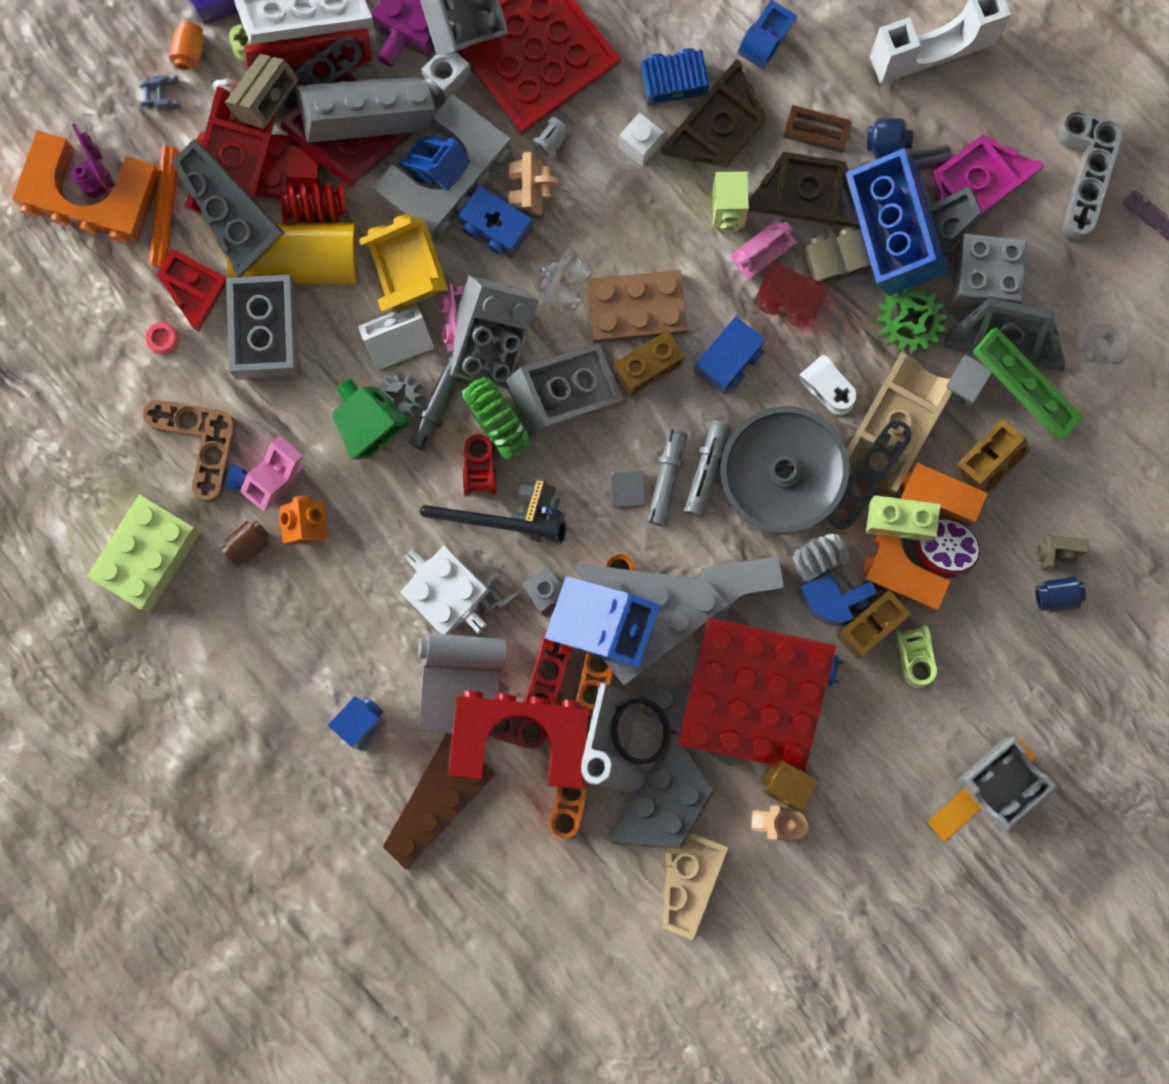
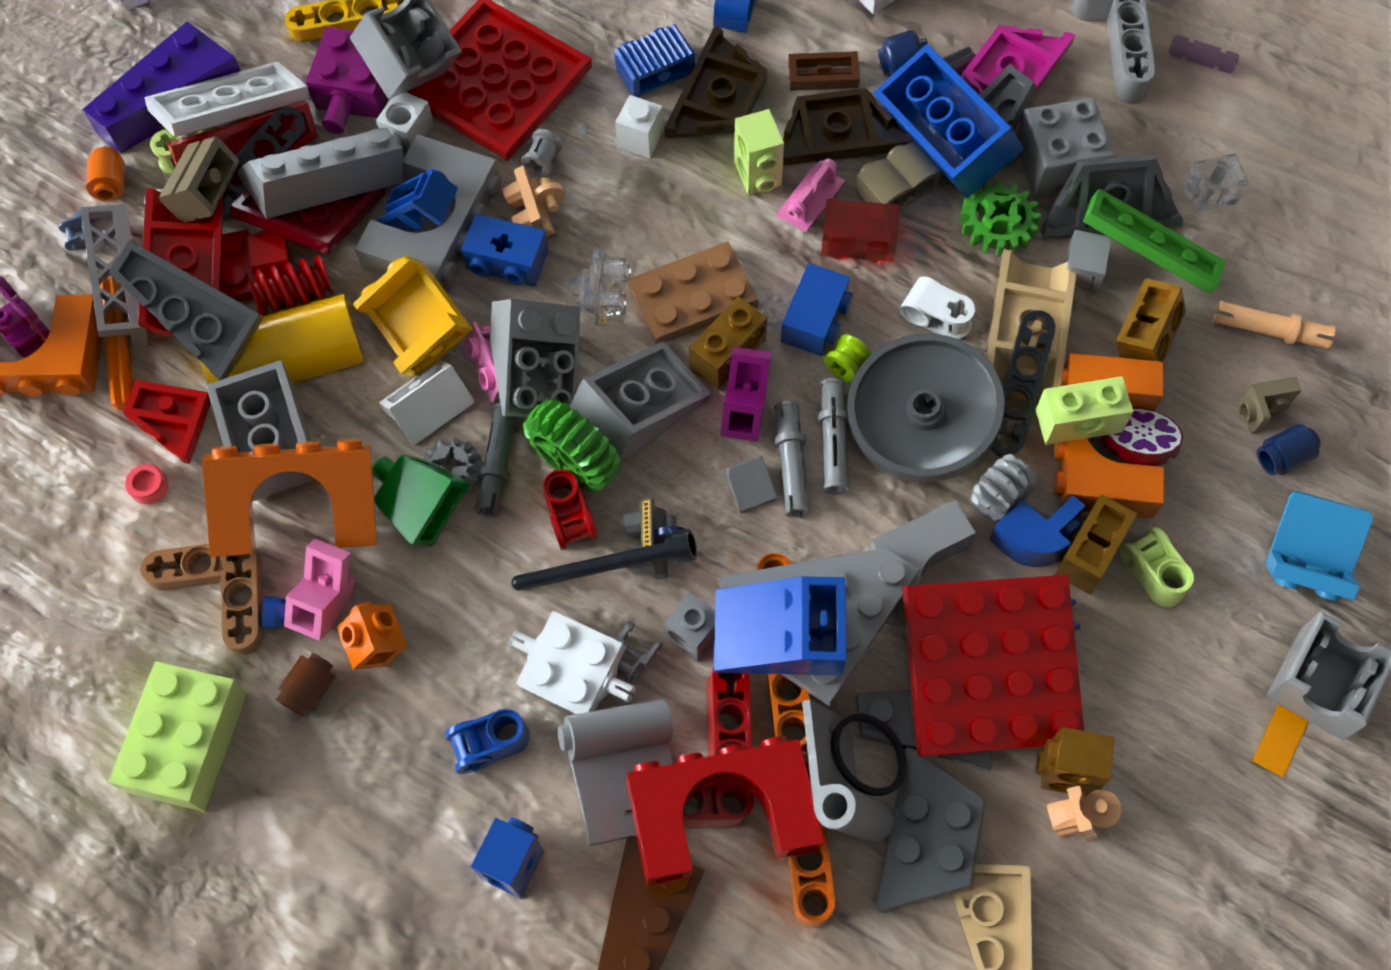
camera: 20 degrees left, 15 degrees down
(188, 127) = (122, 234): none -> light grey fence
(234, 368) = (233, 477): none -> orange arch
(361, 628) = (484, 740): none -> blue piece
(646, 415) = (745, 394): none -> magenta brick
(740, 406) = (847, 357): none -> lime wheel
(1044, 682) = (1319, 546): none -> dark azure bracket
(1097, 485) = (1274, 325): none -> light nougat pin

